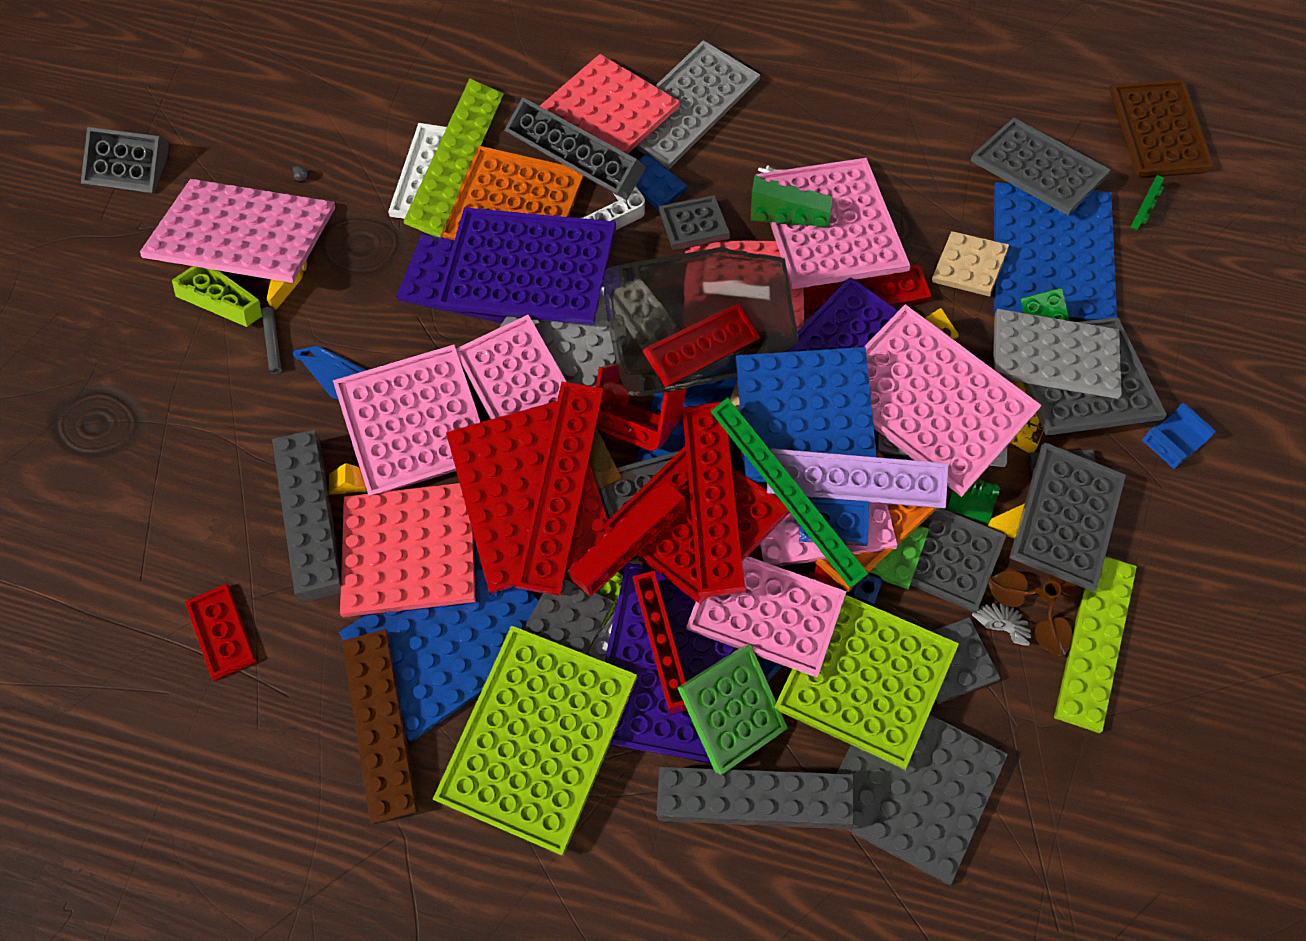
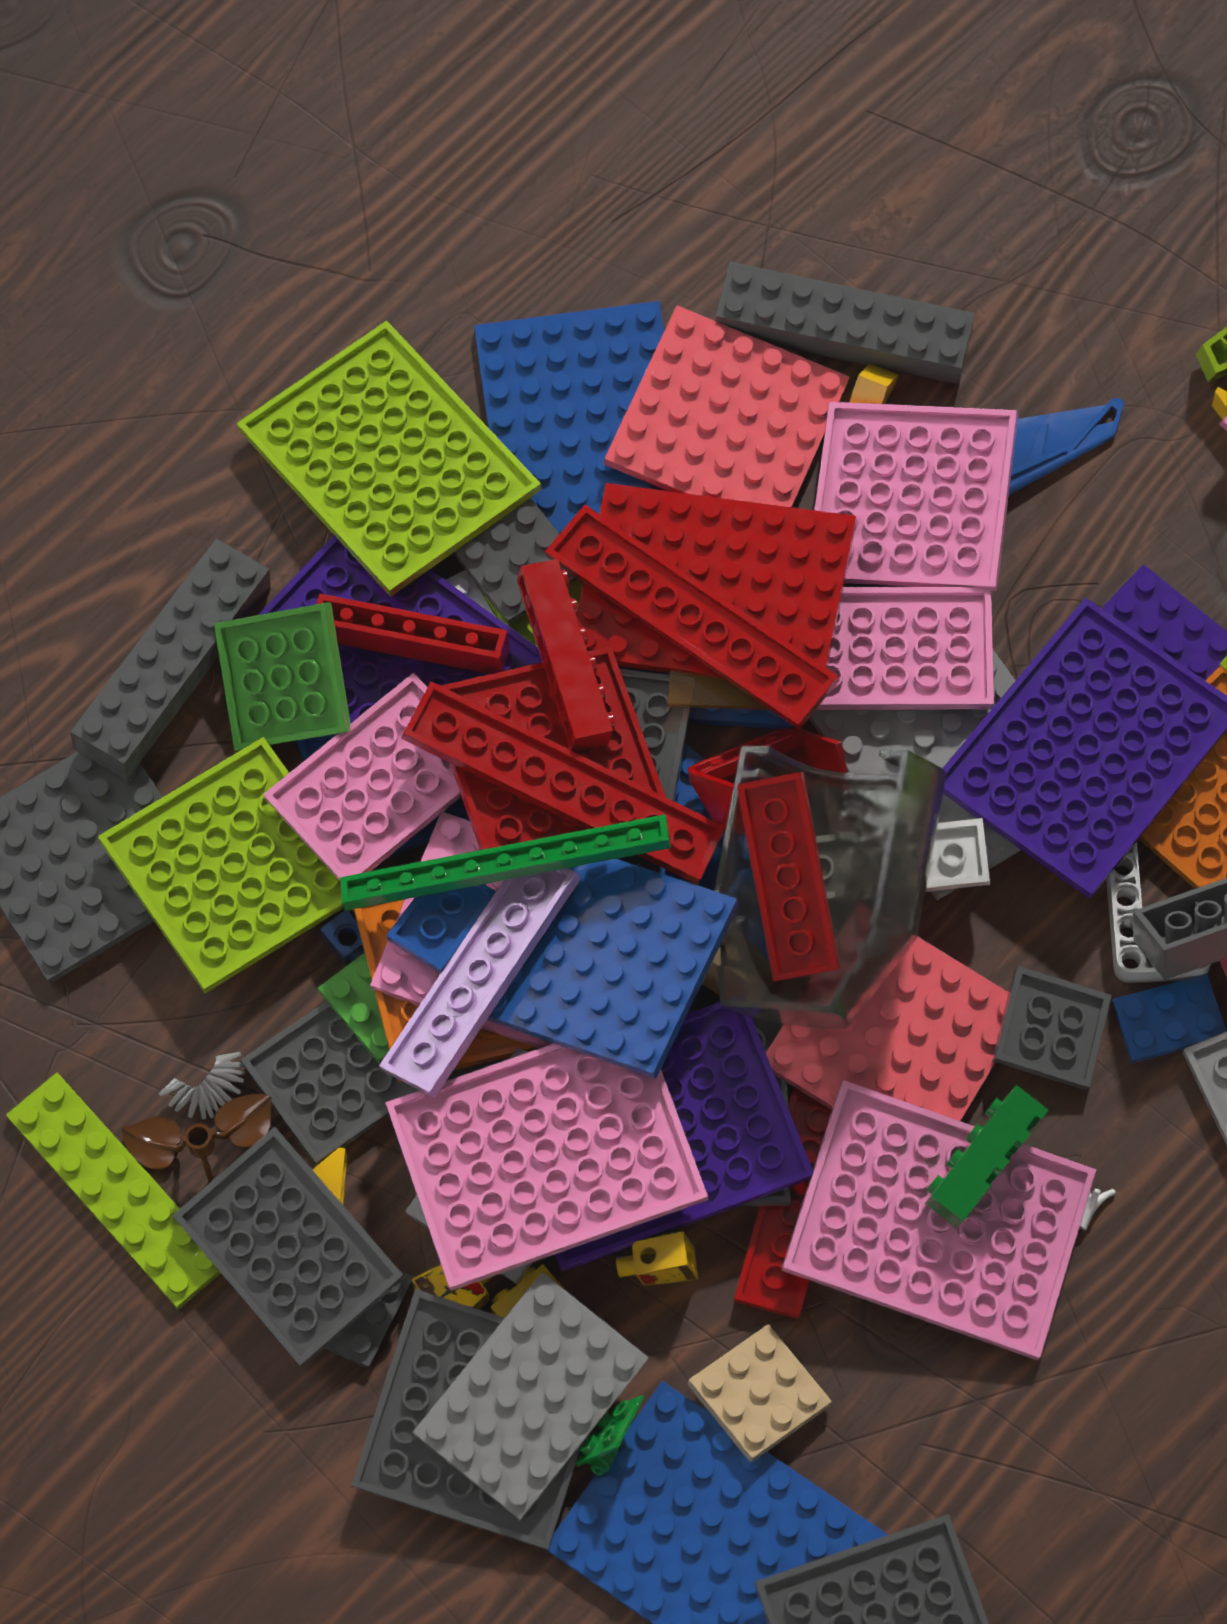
camera: 120 degrees right, 5 degrees up
(220, 632) = (741, 175): red tile -> none
(271, 340) = (1155, 378): dark grey piece -> none
(379, 727) = (510, 298): reddish brown plate -> none
(971, 664) = (185, 1015): dark grey plate -> none
(976, 502) = (384, 1164): green hinge -> none
(1179, 436) = (319, 1500): blue panel -> none

